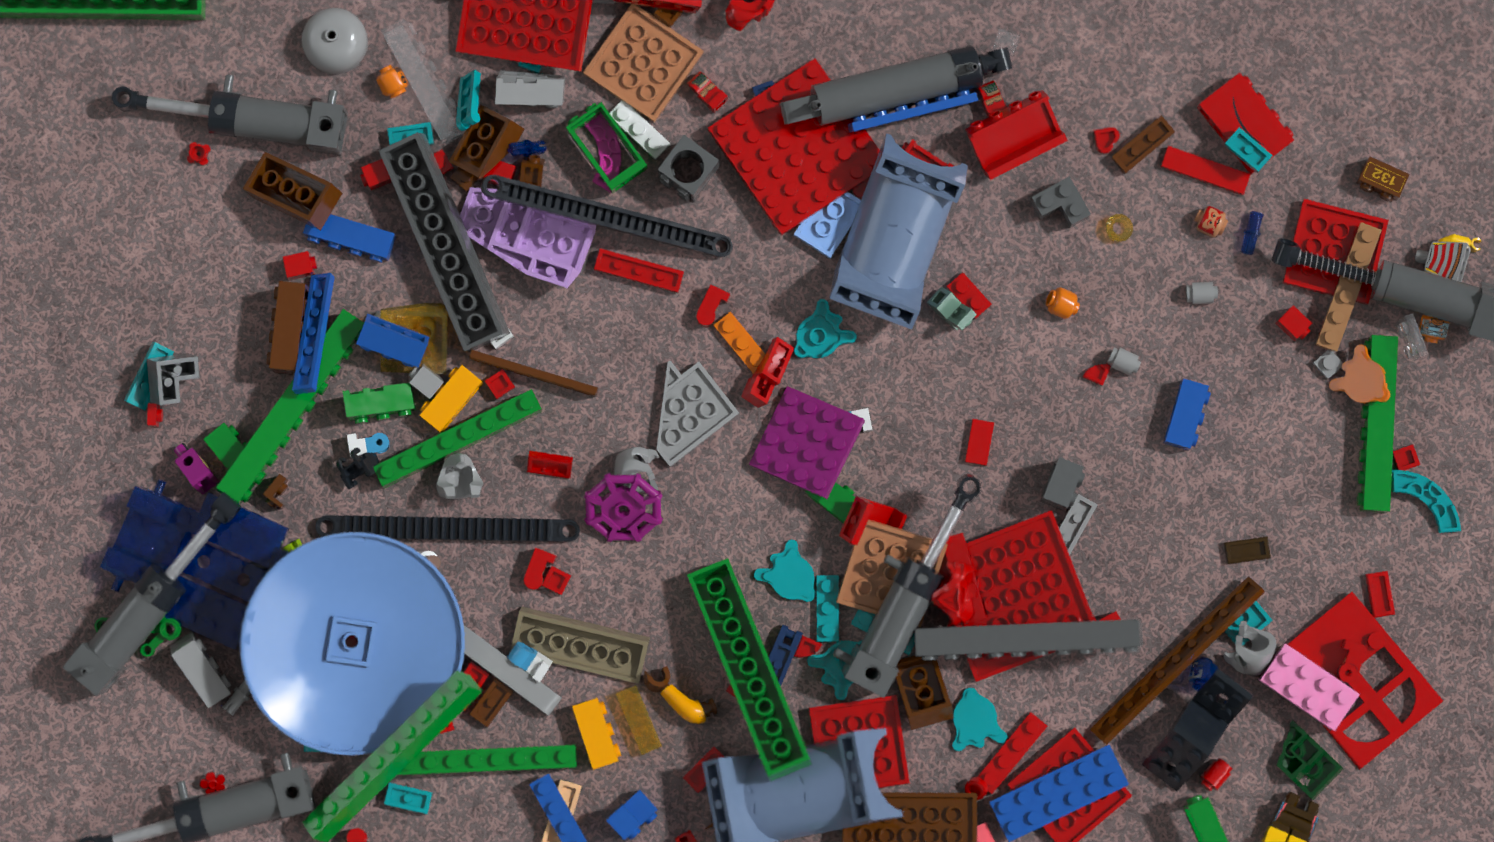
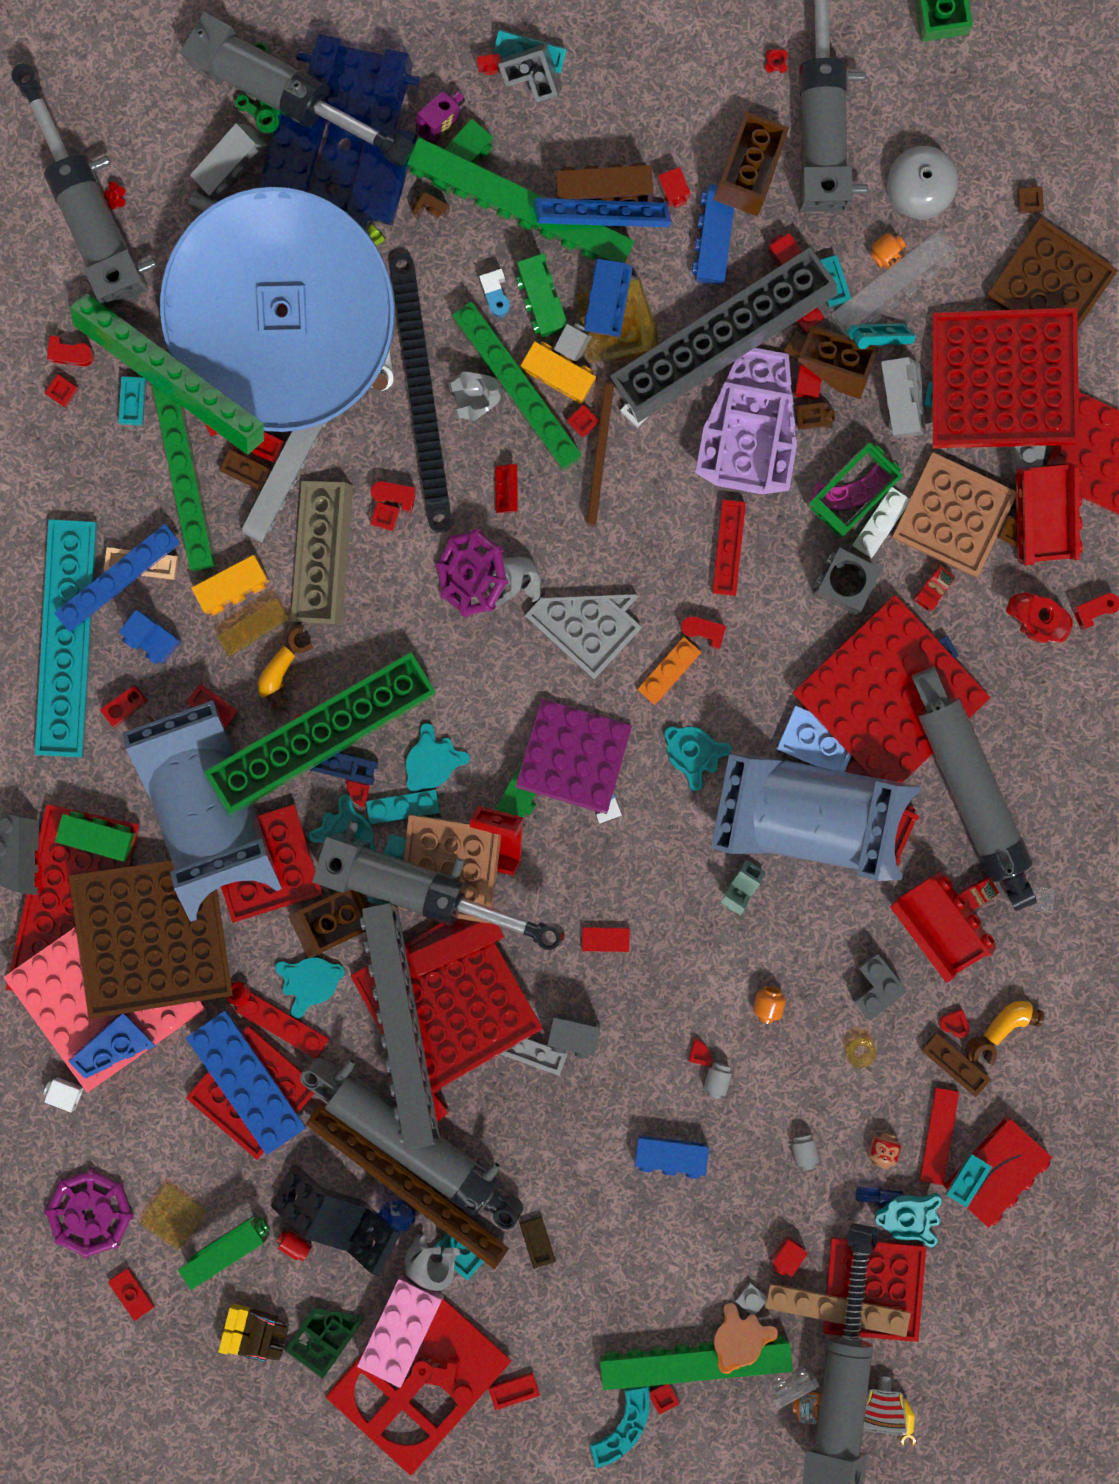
camera: 85 degrees right, 5 degrees up
(357, 468) = (467, 285): black piece -> none
(527, 148) = (840, 405): clear blue axle -> none
(530, 660) = (295, 502): leg -> none
(606, 216) = (779, 499): black gear -> none
(768, 373) = (641, 704): red slope -> none
(903, 112) = (946, 801): blue plate -> none
(956, 594) = (435, 941): red piece -> none
(969, 294) = (762, 903): red plate -> none
(1107, 86) = (1012, 1016): none -> piece
(1117, 671) = (441, 1165): none -> dark grey piece
(1275, 207) = (911, 1218): none -> teal tile
(1382, 179) = (961, 1328): reddish brown brick -> none

